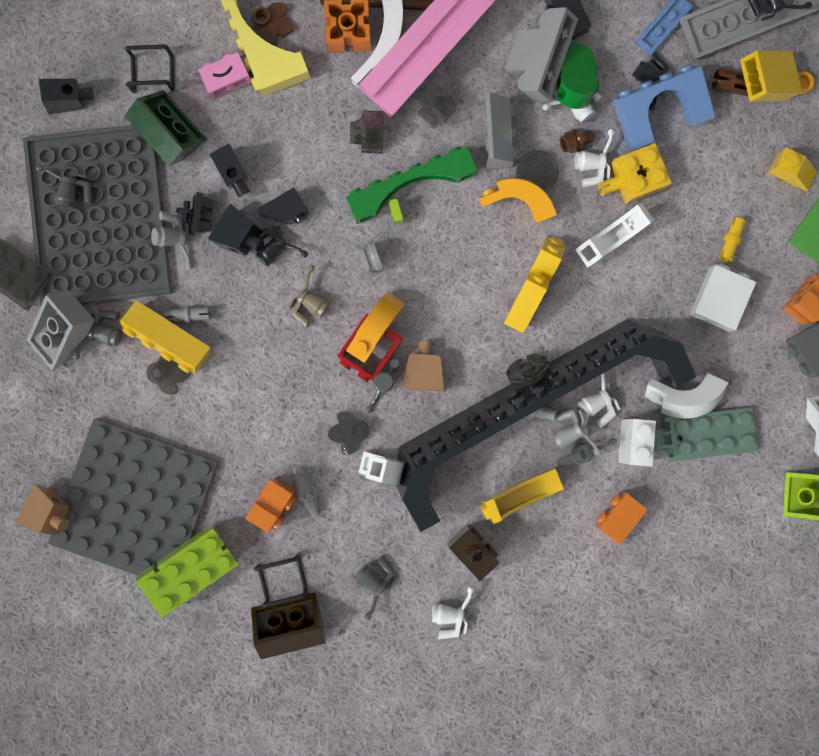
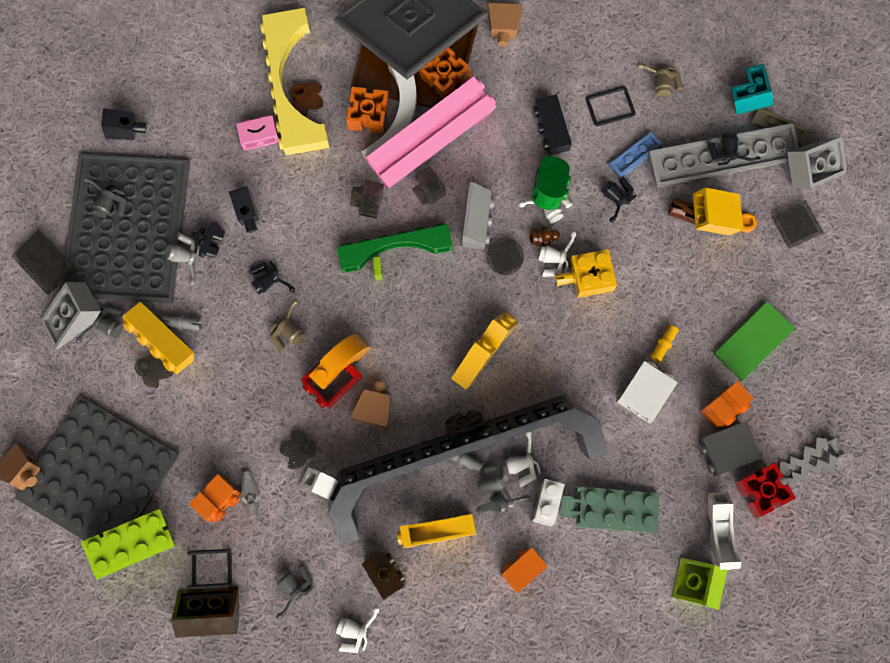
camera: 15 degrees right, 10 degrees down
(133, 83) = (179, 126): black piece -> none
(165, 127) = (198, 165): dark green slope -> none
(236, 233) = (238, 261): black torso -> none
(285, 208) = (284, 249): black slope -> none
(369, 257) = (346, 302): light grey wheel -> none
(383, 382) = (336, 410): dark grey piece -> none
(524, 189) = (497, 275): light orange arch -> none
(541, 53) = (524, 158): light grey brick -> none
(614, 235) = (560, 322): white arch -> none
(633, 105) = (596, 214): medium blue arch -> none
(687, 403) = (601, 477): white arch -> none
(793, 168) = (727, 293): yellow slope -> none

